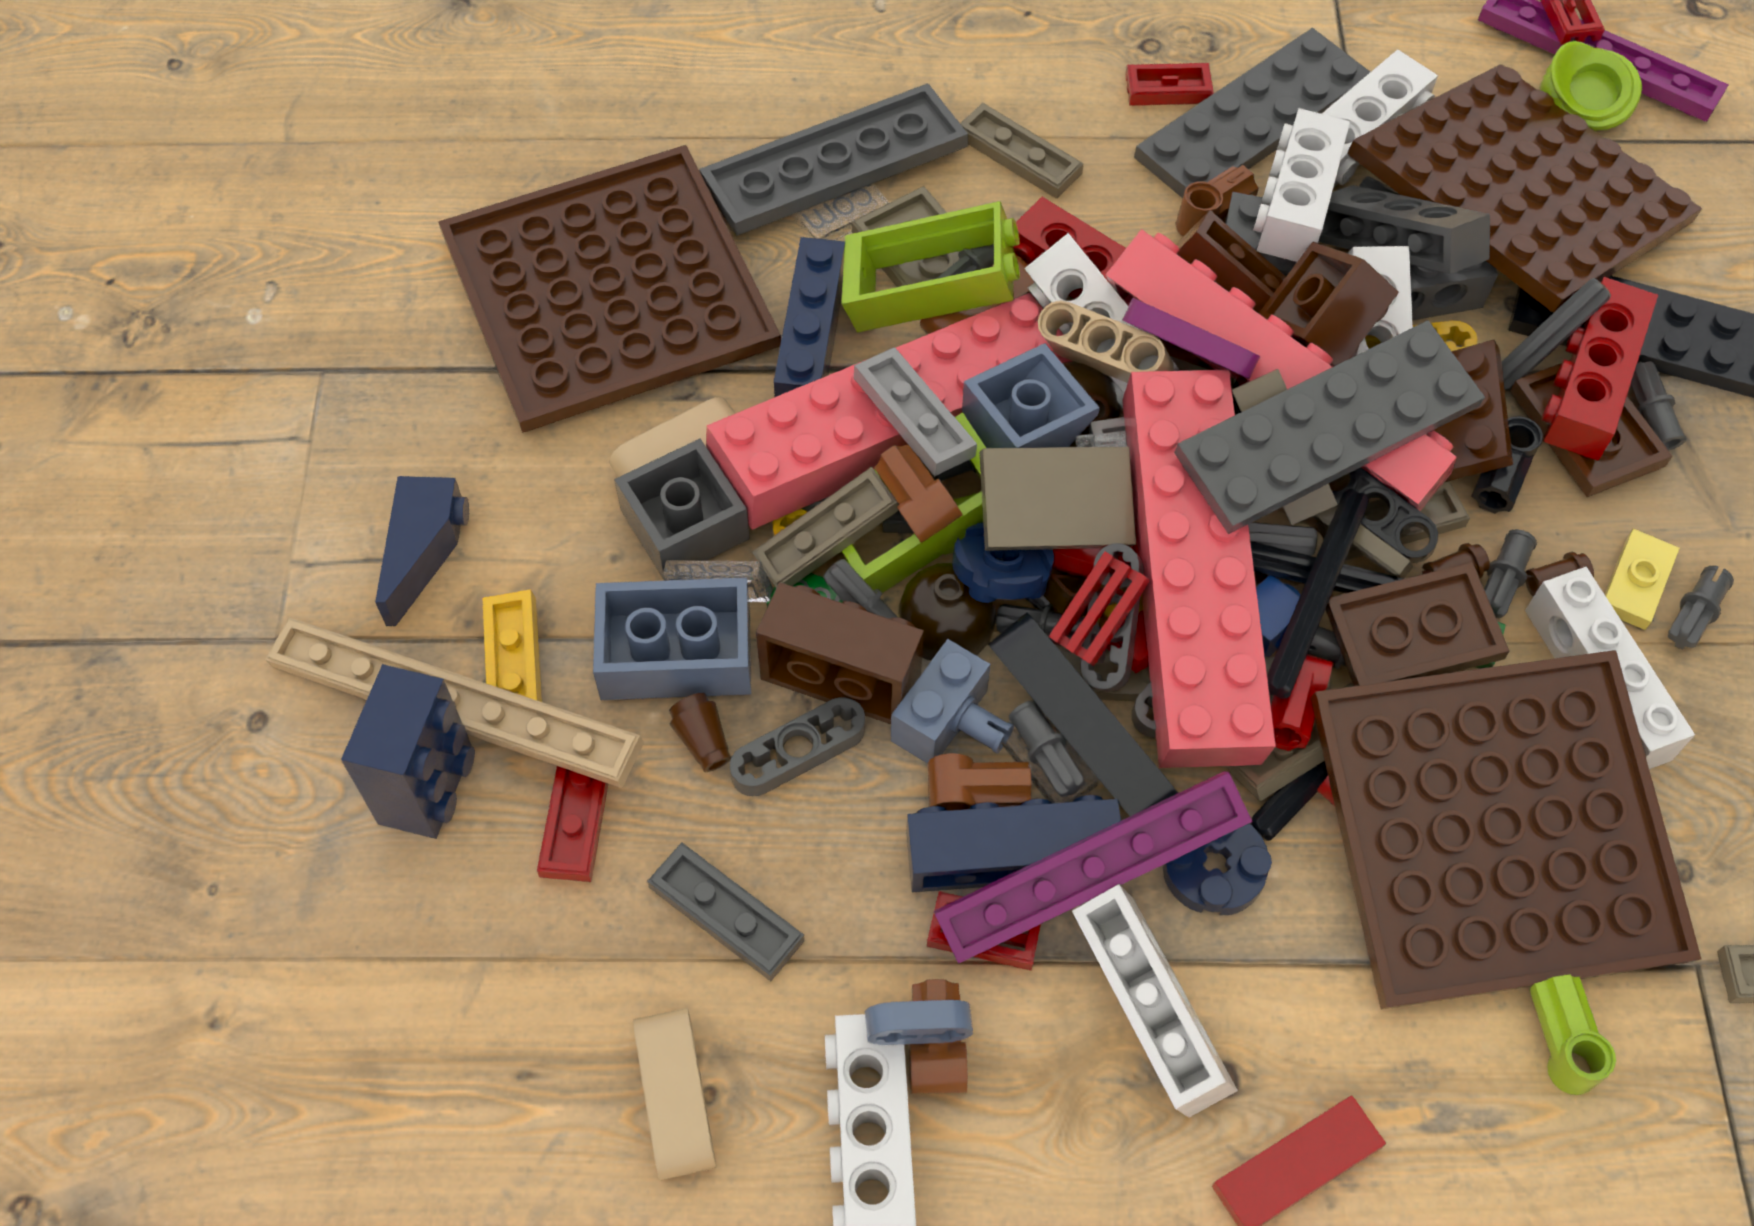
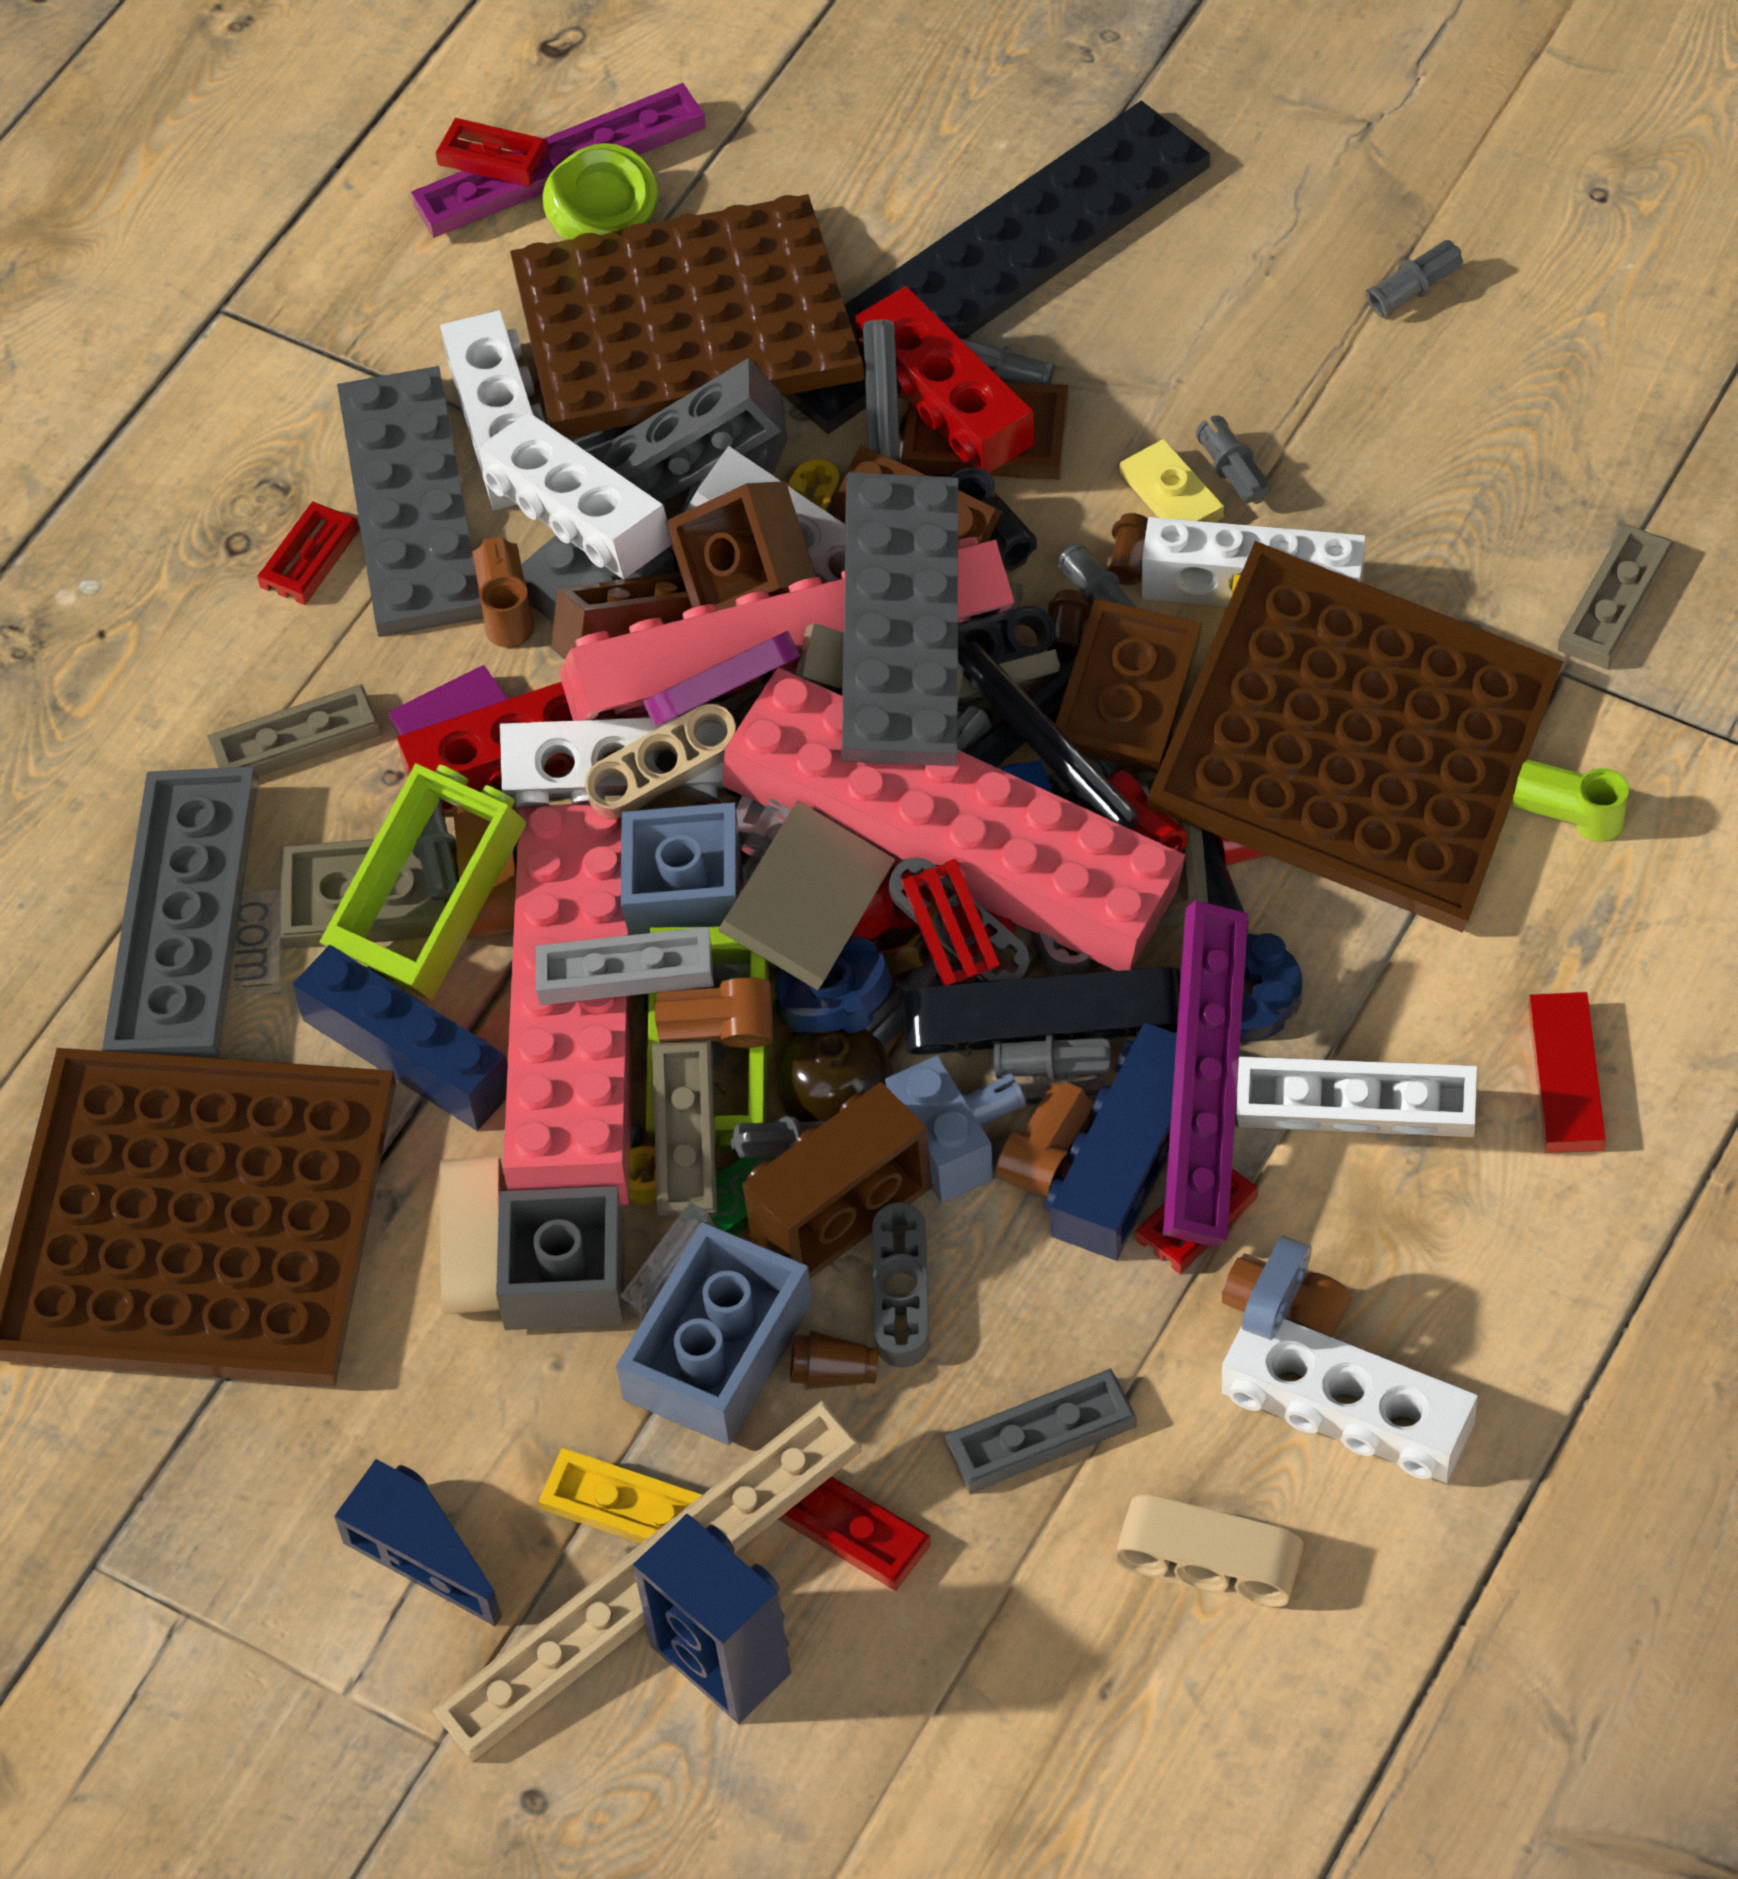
camera: 55 degrees left, 5 degrees down
(1103, 217) = (452, 699): none -> magenta tile

